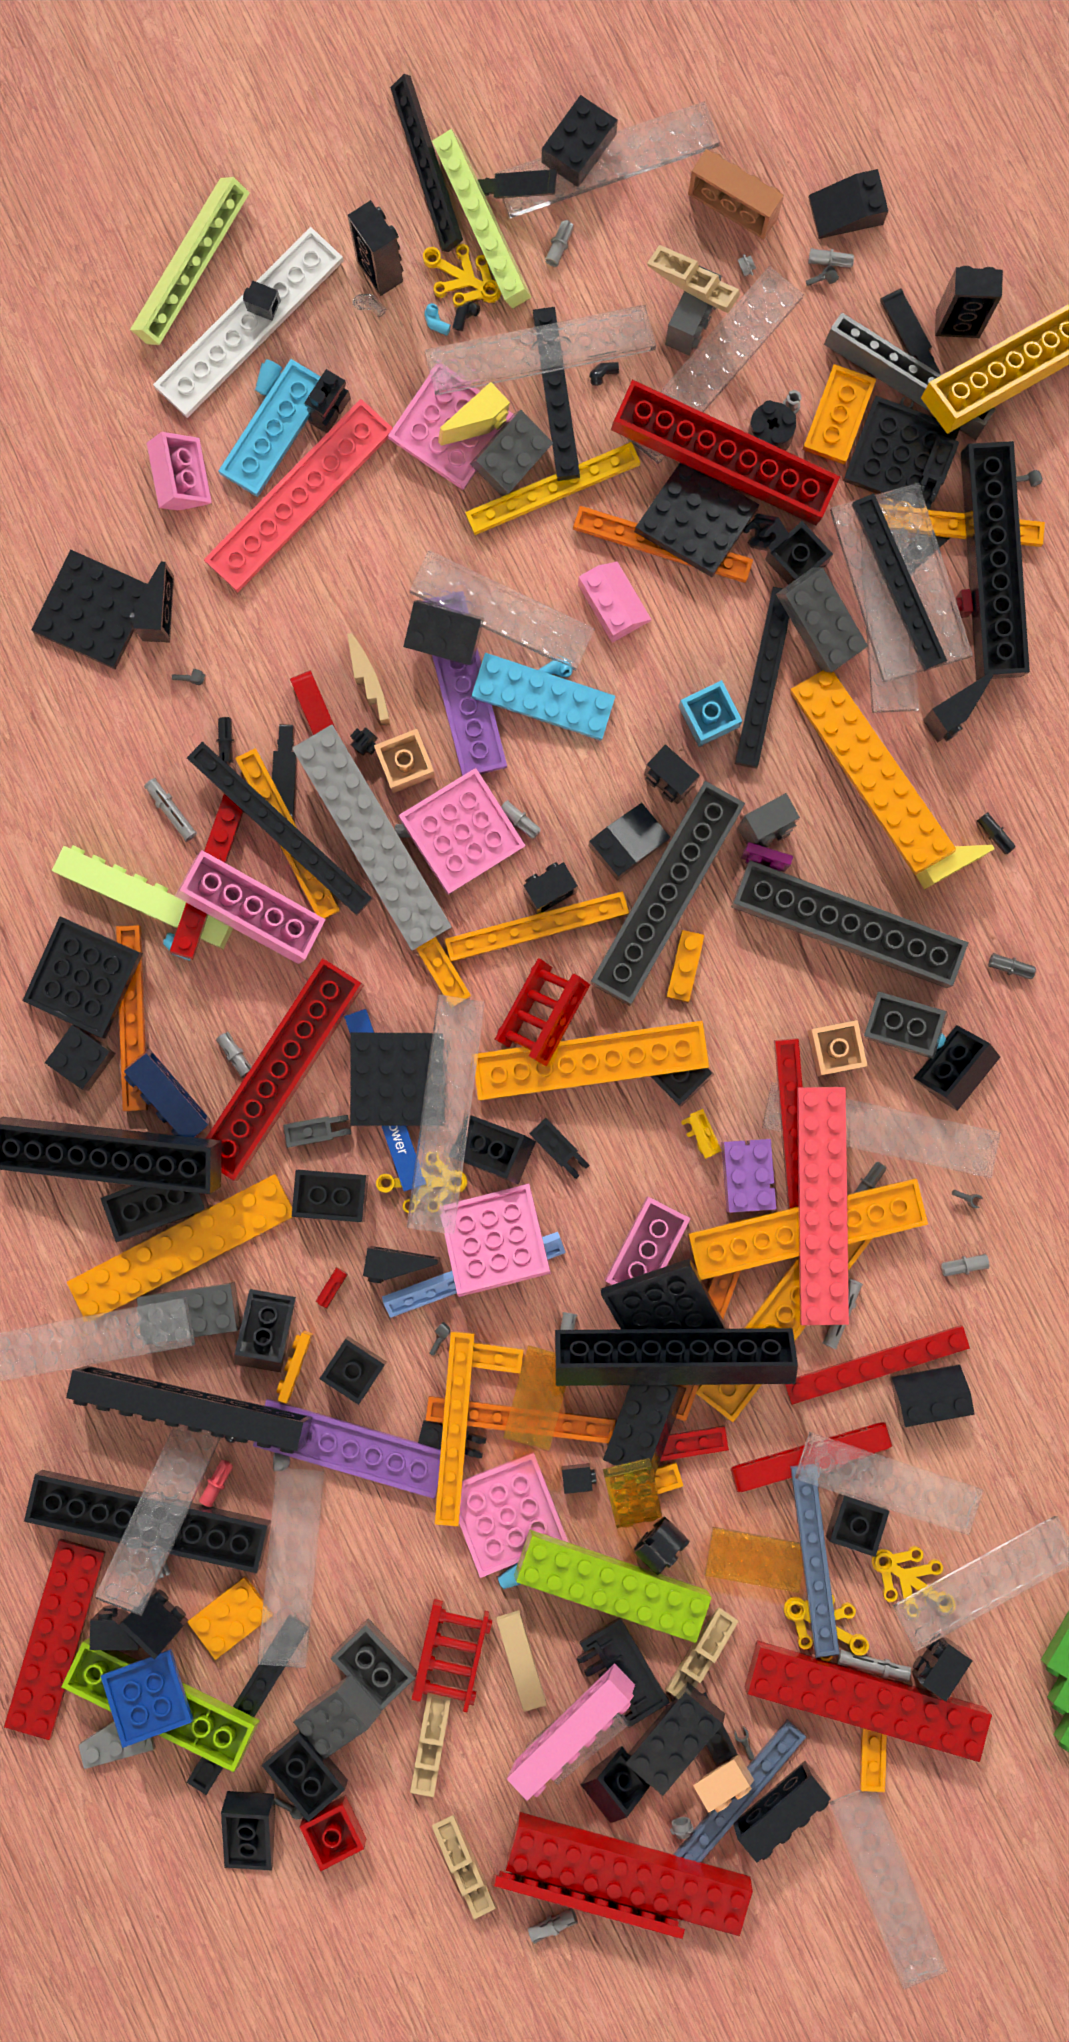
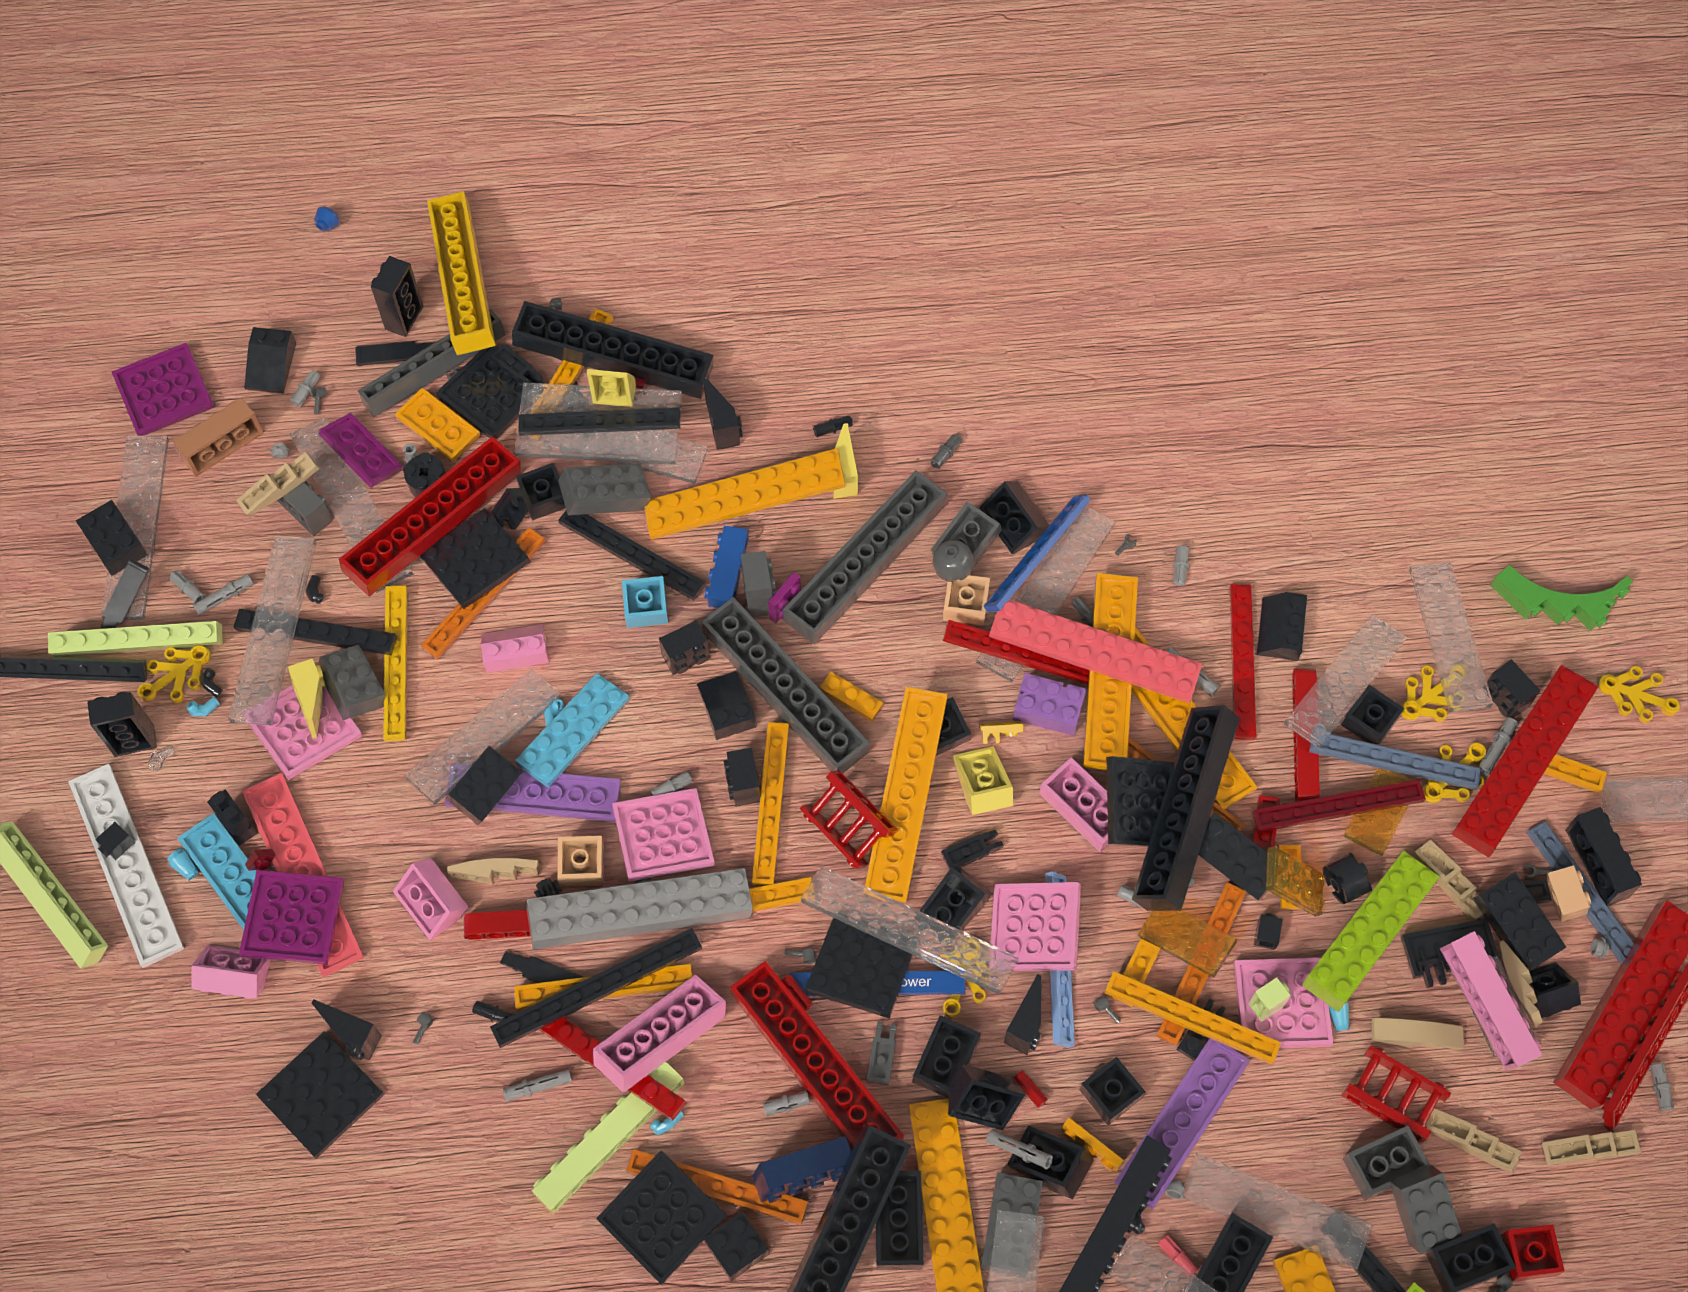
camera: 70 degrees left, 20 degrees down
(247, 505) = (291, 917): none -> magenta plate
(261, 1305) = (1040, 1157): none -> light grey pin
(294, 448) = (260, 859): none -> dark red plate
(300, 1245) = (983, 1097): none -> black slope
(318, 630) = (430, 898): none -> bright pink slope
(345, 1025) = (797, 992): none -> red piece
(390, 1023) = (807, 954): none -> dark grey hand
(496, 1503) = (1269, 999): none -> yellowish green brick
(572, 288) = (223, 594): none -> light grey pin
(613, 1752) = (1520, 980): none -> tan slope
(639, 1134) = (983, 780): none -> light yellow slope
(739, 1515) = (1338, 805): none -> dark red plate
(773, 112) = (162, 389): none -> magenta plate
(776, 347) = (360, 450): none -> magenta plate
(794, 780) = (727, 566): none -> blue brick
(870, 1020) = (953, 560): none -> dark grey cylinder
(916, 1106) = (1036, 553): none -> blue tile
(942, 578) = (611, 387): none -> light yellow slope
(991, 1802) = (1636, 694): none -> yellow plant
(1045, 186) = (326, 219): none -> blue cone

